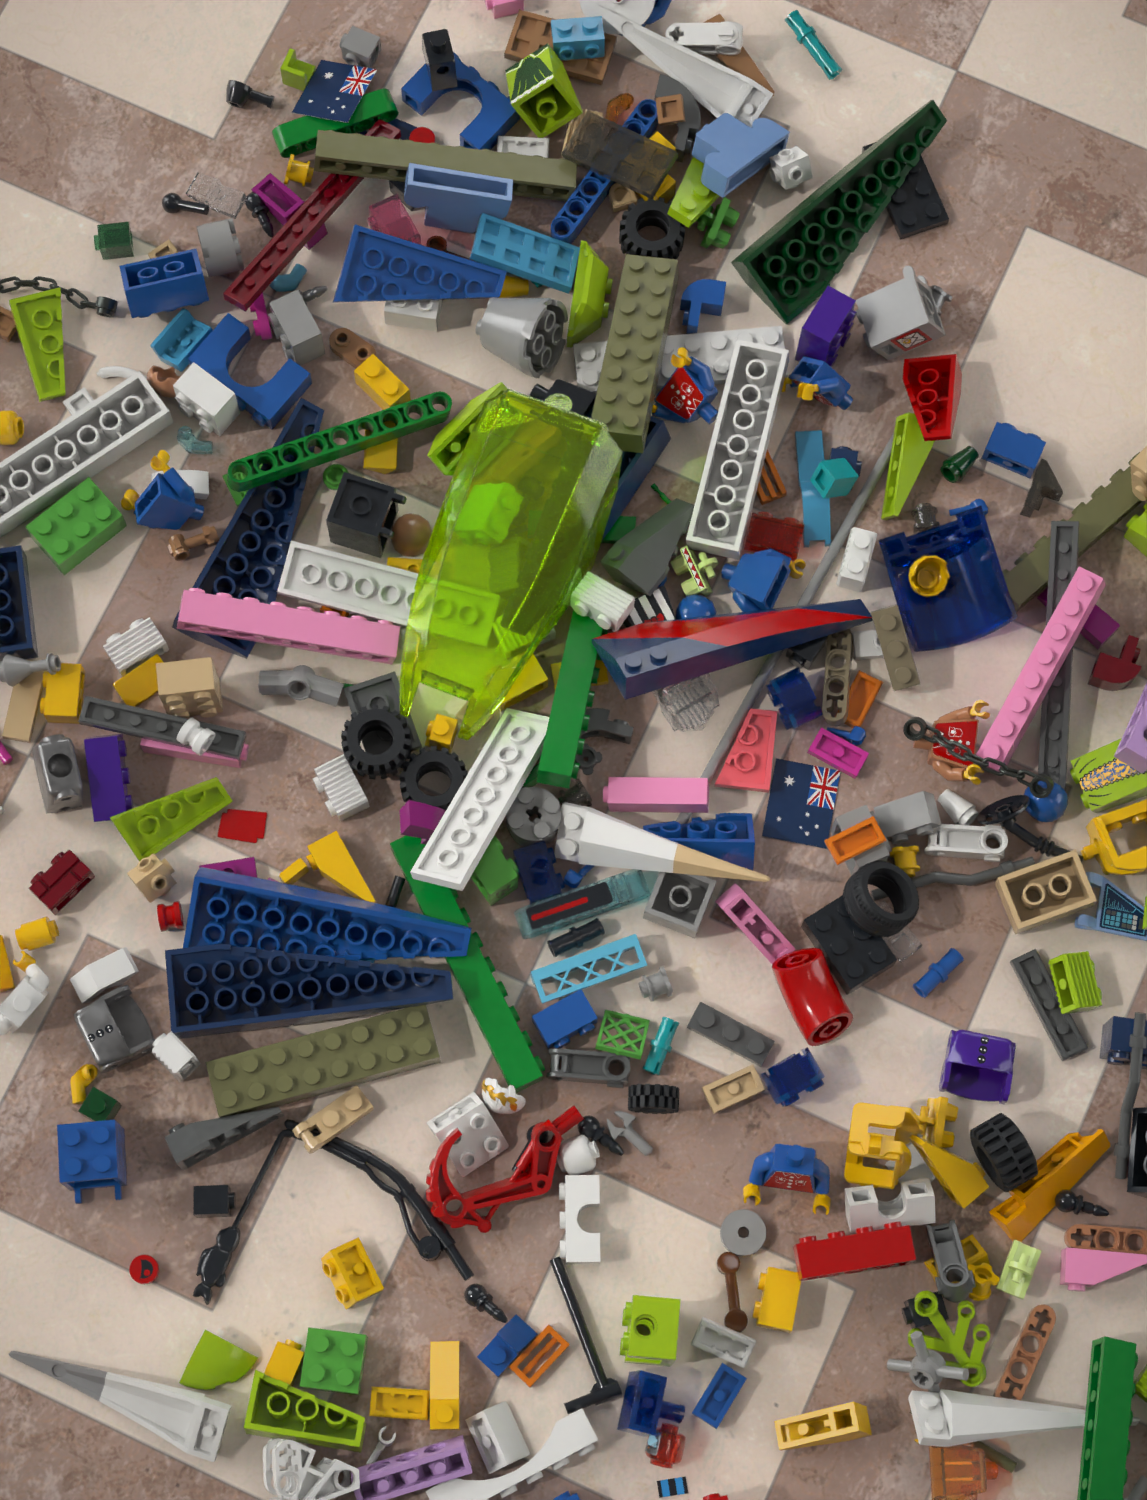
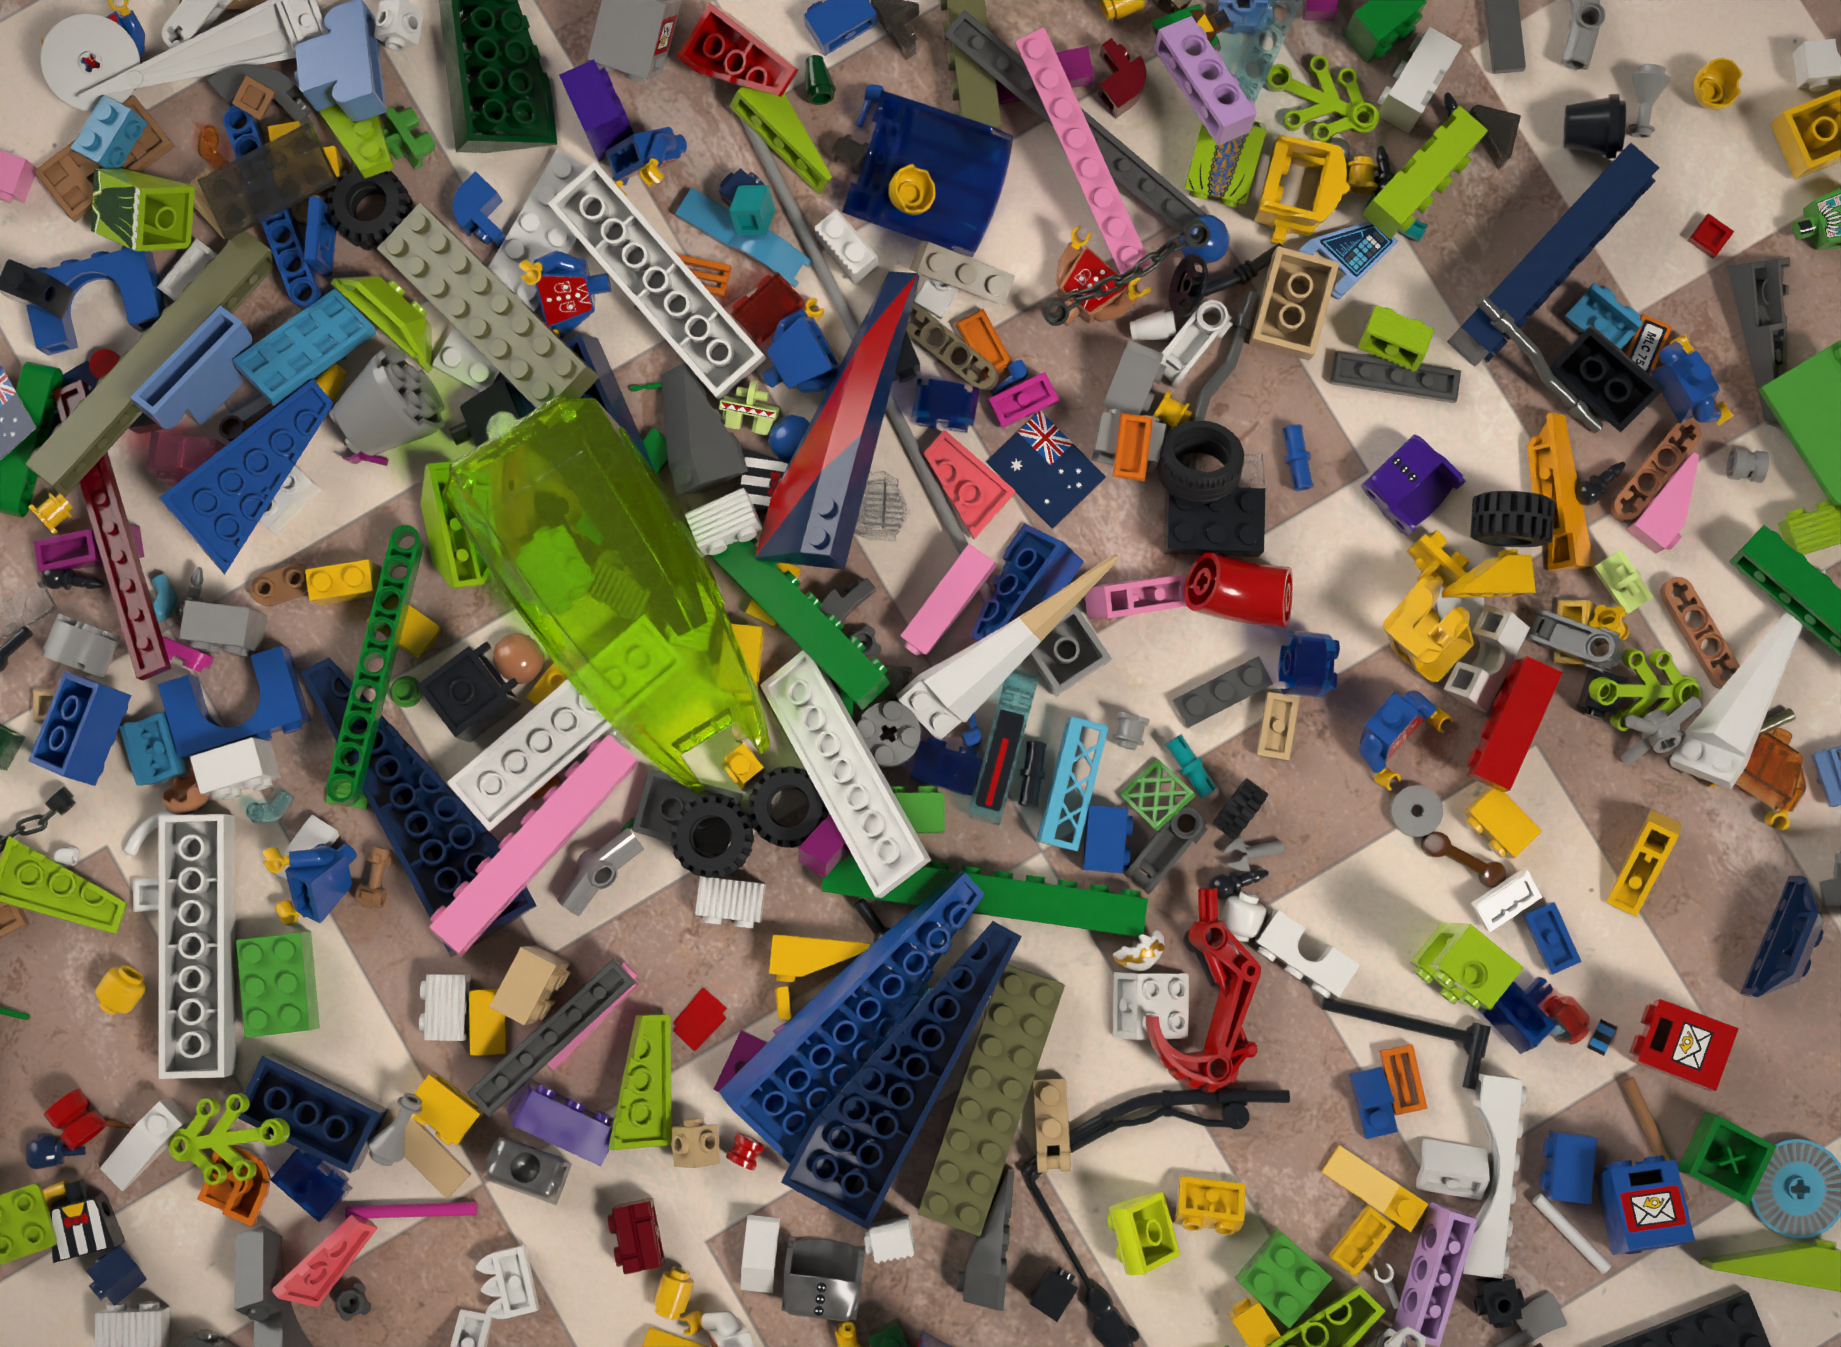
camera: 50 degrees left, 10 degrees up
(71, 335) = (67, 856): none -> white hand
(196, 737) = (588, 1012): white wheel -> none
(299, 1236) = (1143, 1233): none -> neon yellow brick
(475, 339) = (357, 458): none -> magenta hand
(477, 1297) = (1308, 1100): black bar -> none
(606, 214) = (320, 237): none -> blue tile

